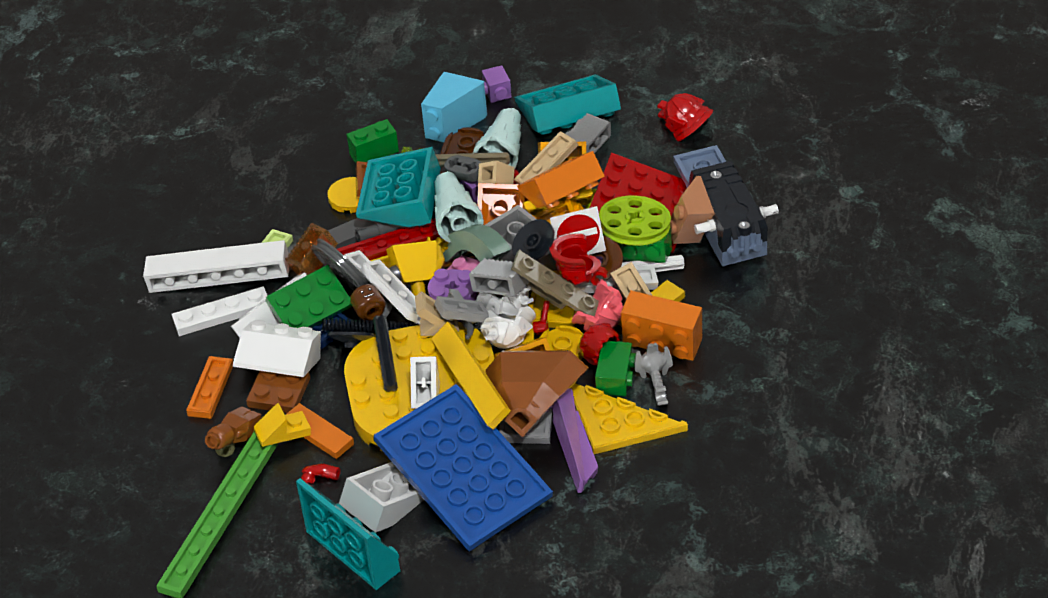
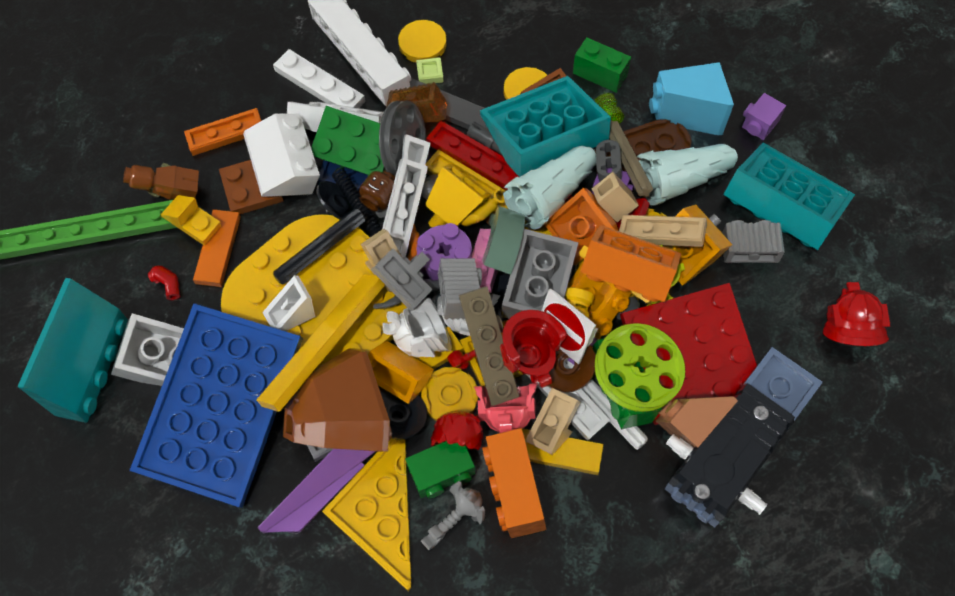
camera: 55 degrees right, 20 degrees up
(244, 231) = (422, 40): none -> yellow tile
(534, 239) = (524, 290): black dish -> none

